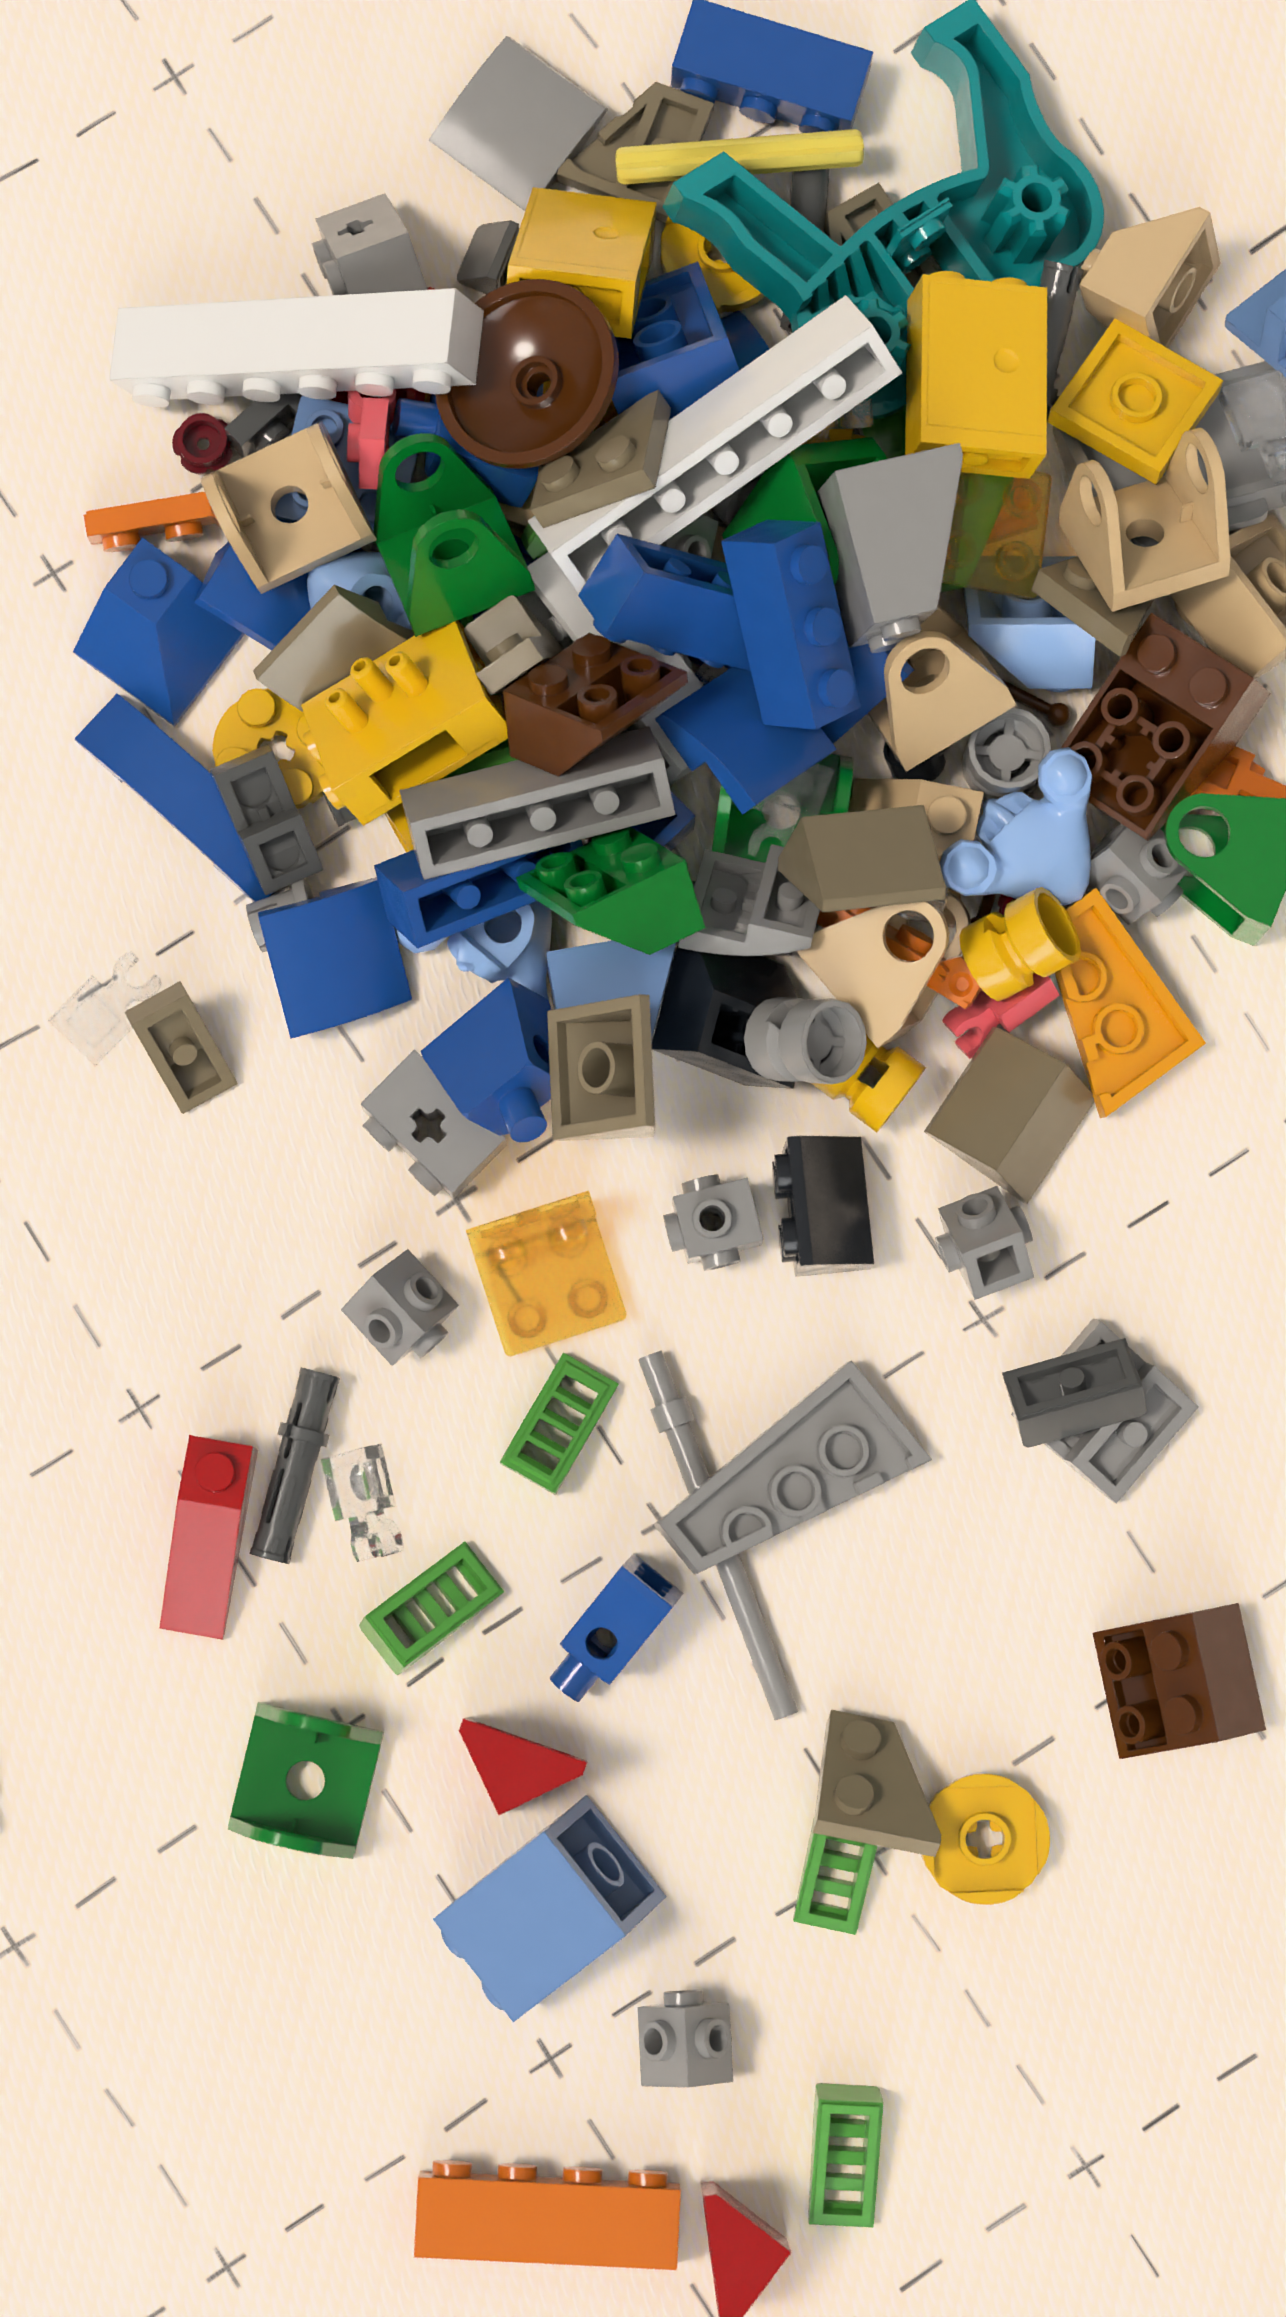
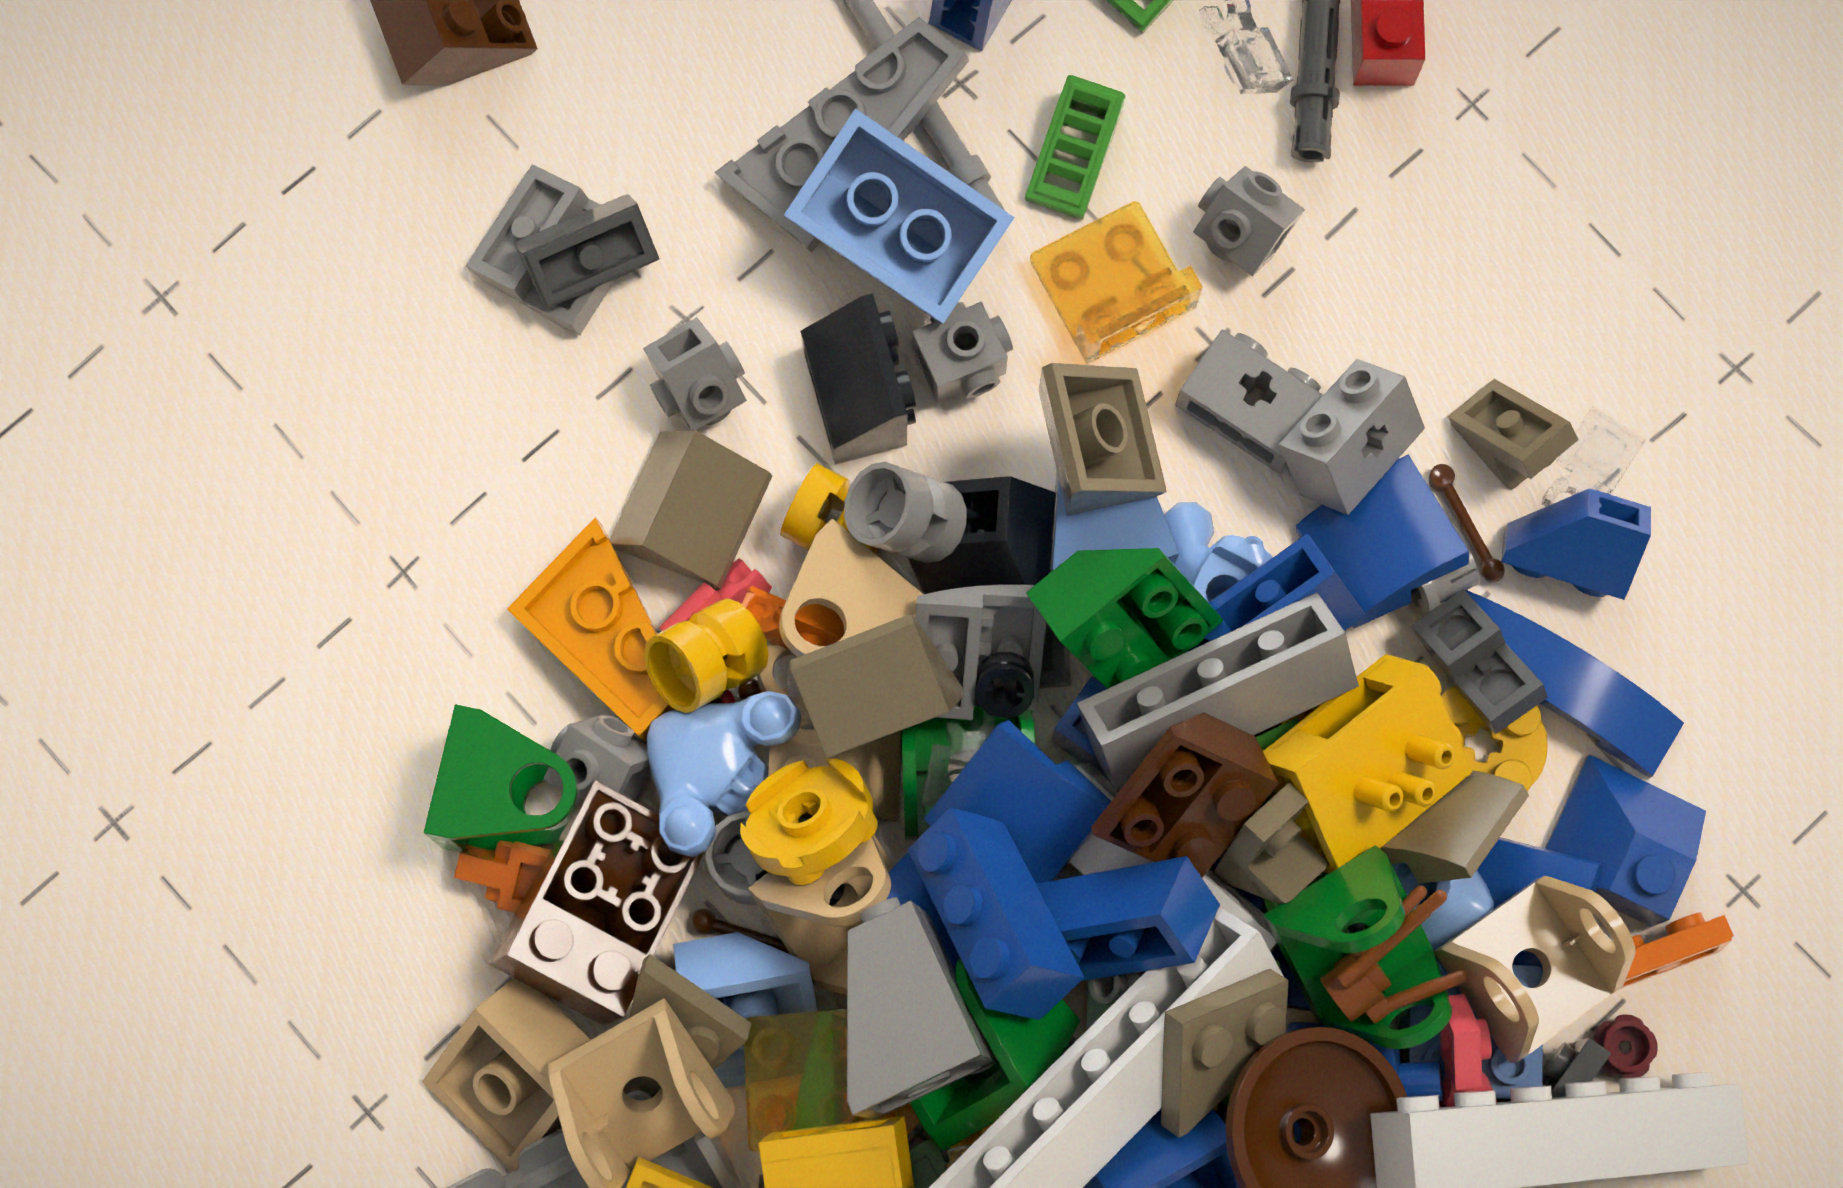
camera: 175 degrees right, 5 degrees down
(139, 923) = (1581, 541): none -> blue slope
(255, 1022) = (1442, 479): none -> reddish brown hinge
(344, 1061) = (1352, 436): none -> light grey brick
(454, 493) = (1359, 980): none -> dark orange plant
(498, 1062) = (1205, 448): blue torso -> none
(735, 867) = (1000, 701): none -> black bush
(758, 1353) = (898, 216): none -> light blue slope
(930, 729) = (805, 849): none -> yellow plate

